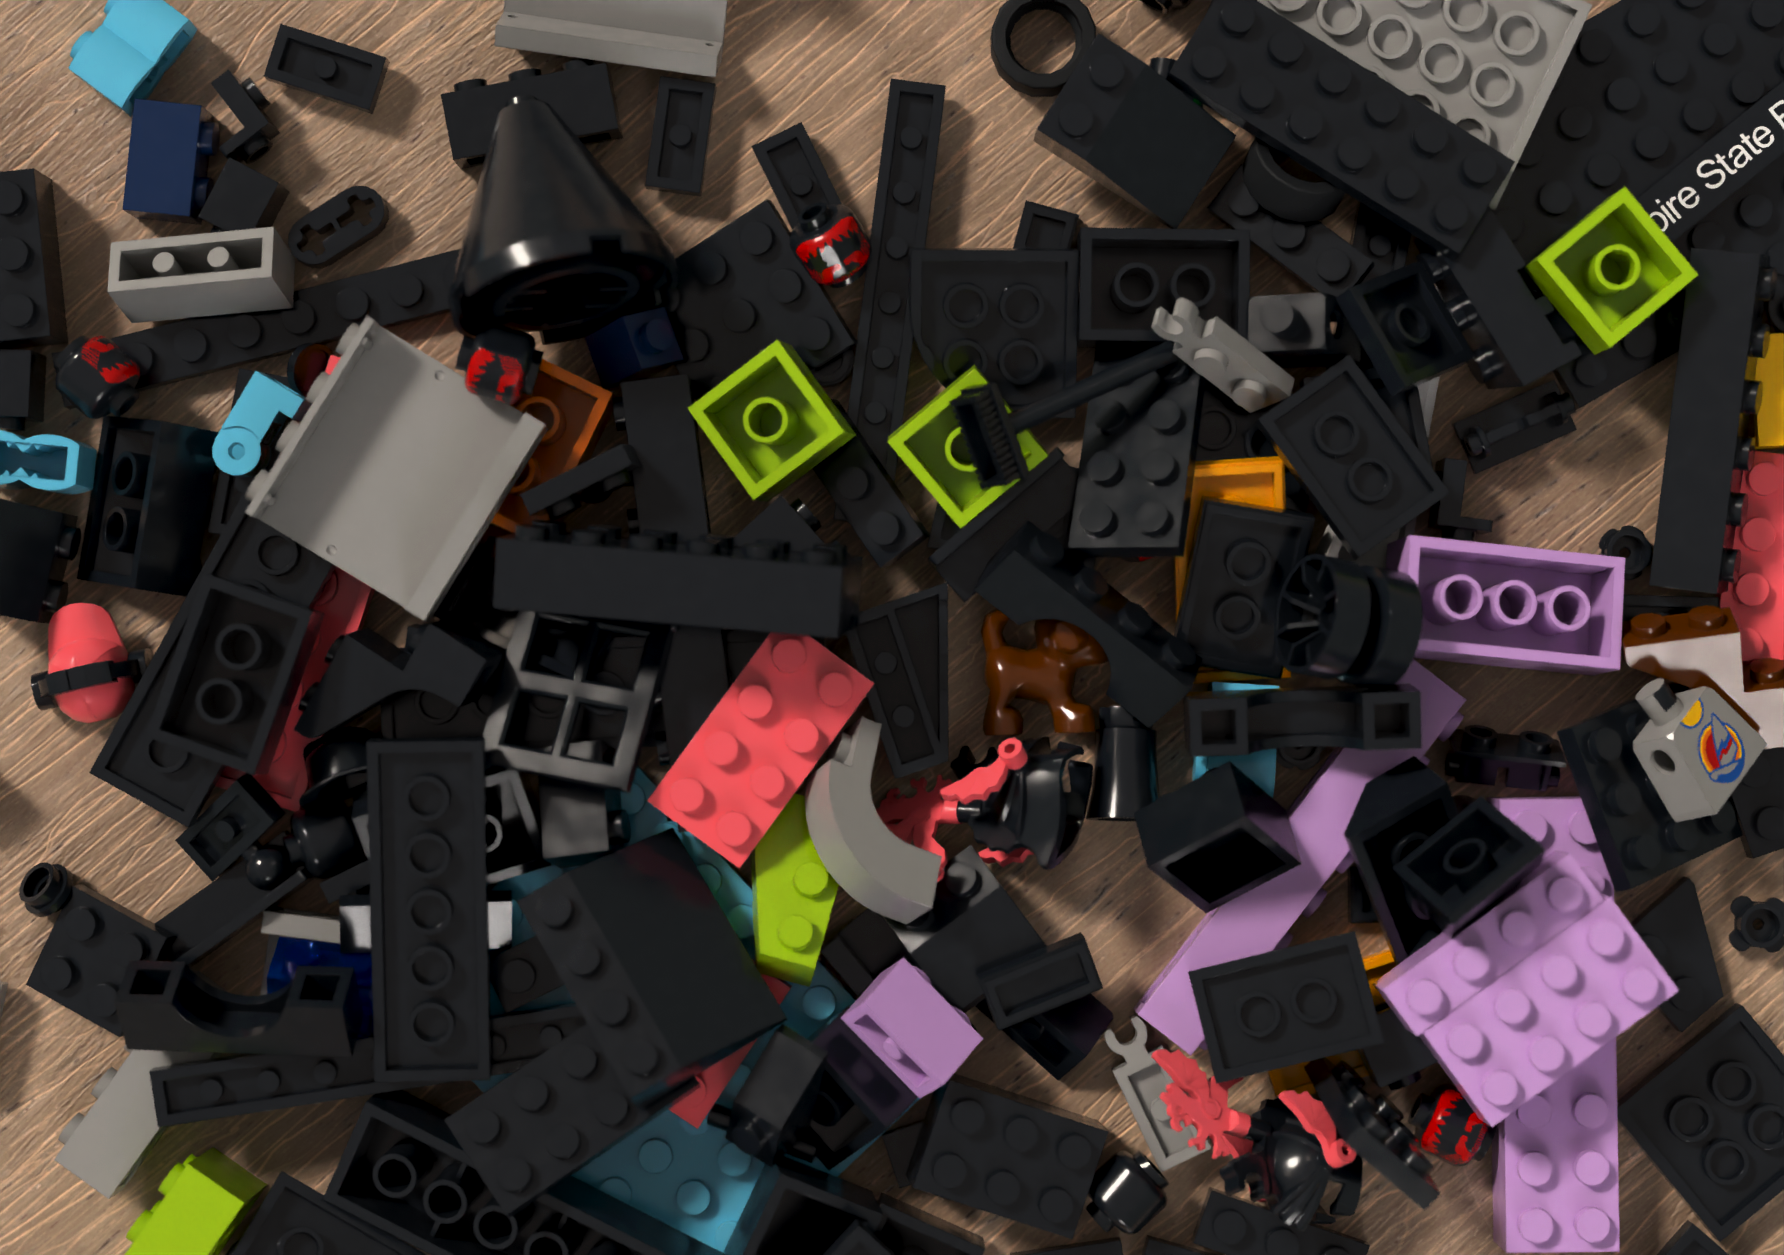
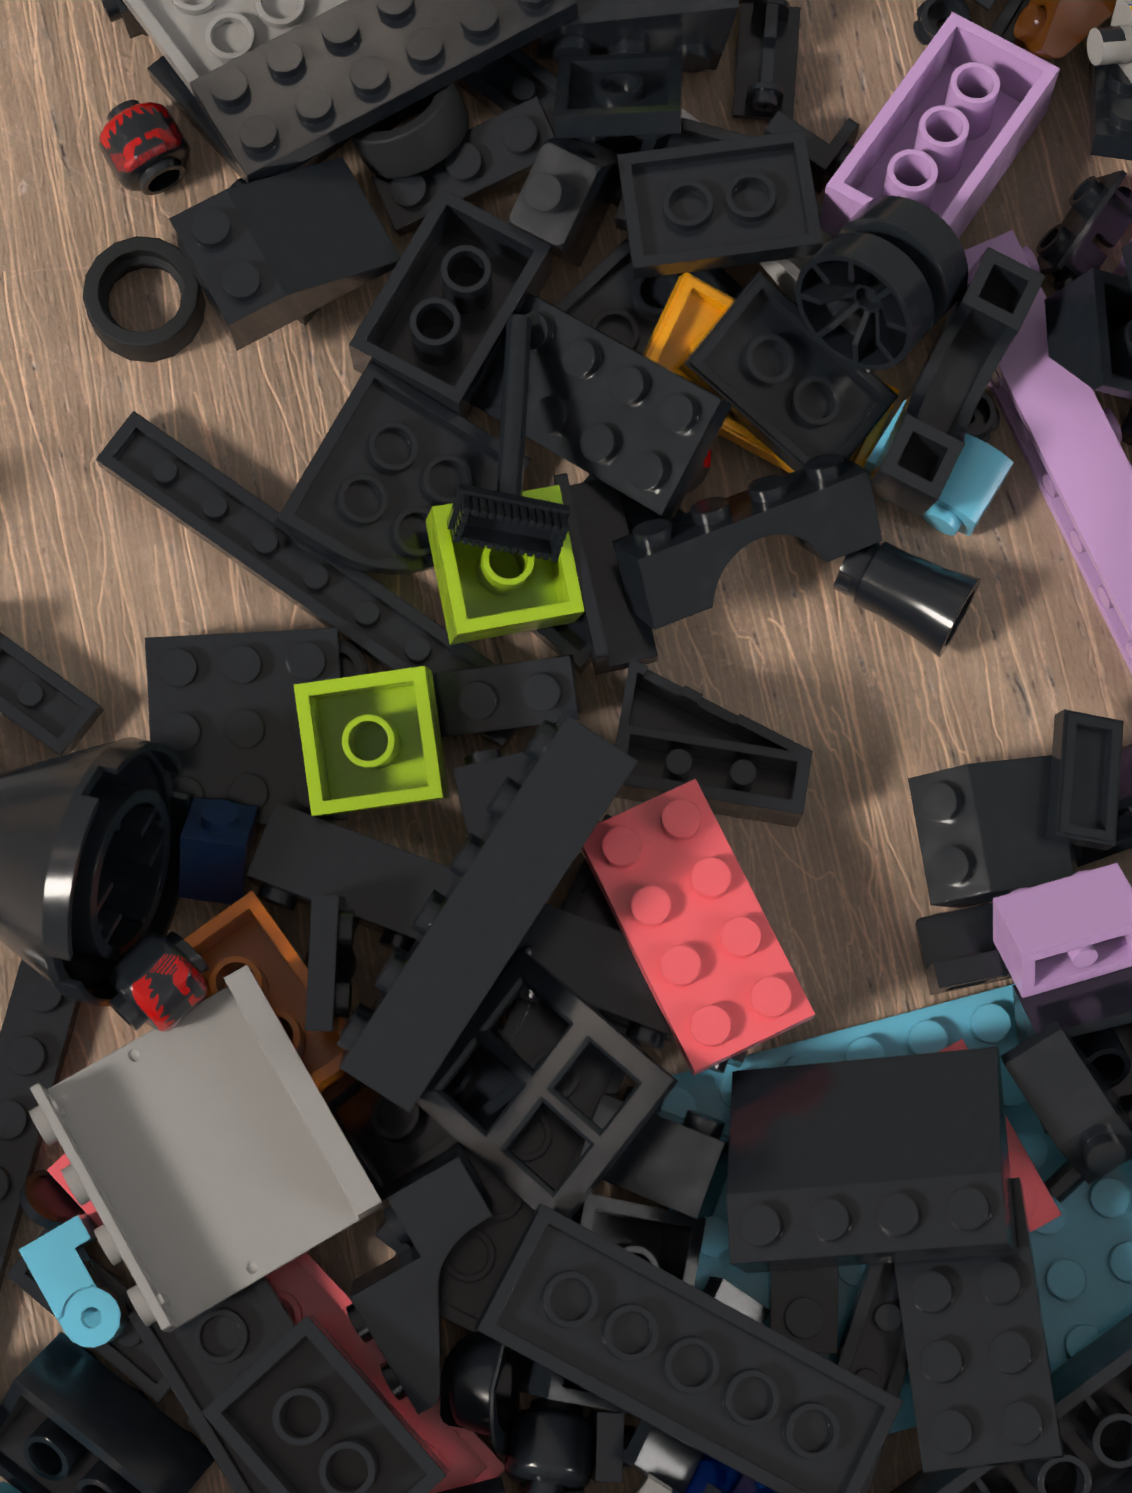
camera: 65 degrees left, 10 degrees down
(789, 897) = (865, 974): lime wedge -> none
(794, 172) = (149, 602): black plate -> none
(830, 244) = (225, 598): black head -> none
(855, 842) = (846, 880): light grey arch -> none
(1017, 804) = (892, 711): black helmet -> none
(1037, 674) = (769, 623): reddish brown animal -> none
(1045, 227) = (325, 393): black tile -> none
(1217, 837) = (1028, 527): black piece -> none
(1223, 357) = (554, 273): light grey plate -> none

